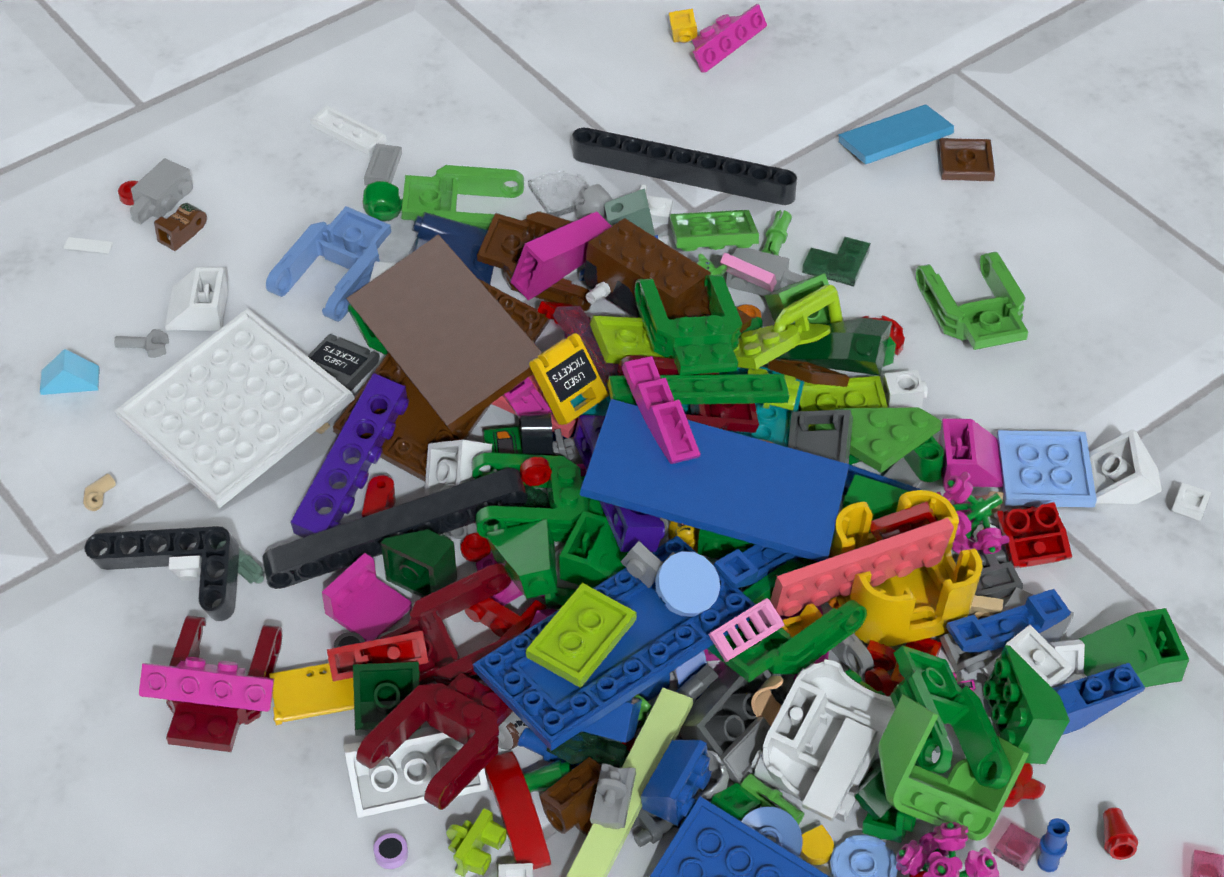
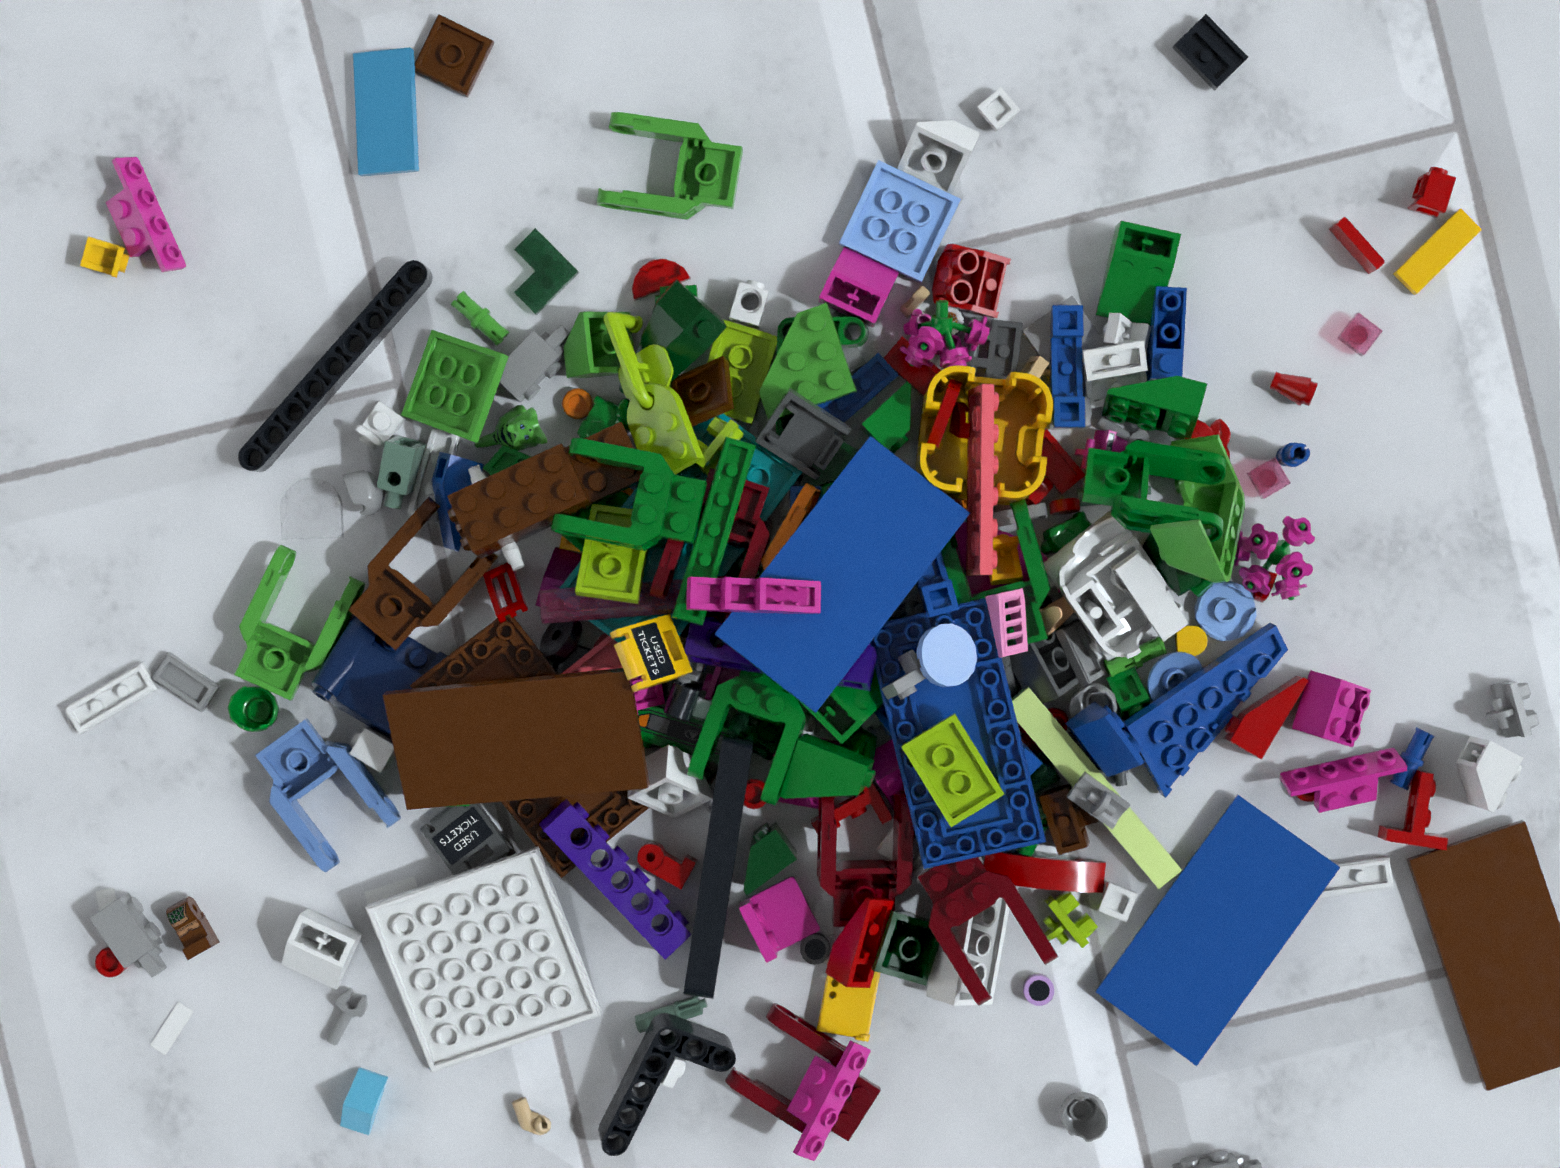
camera: 65 degrees left, 40 degrees up
(535, 471) = (729, 722): red tile -> none
(556, 254) = (444, 567): dark pink slope -> none
(749, 272) = (543, 386): bright pink tile -> none

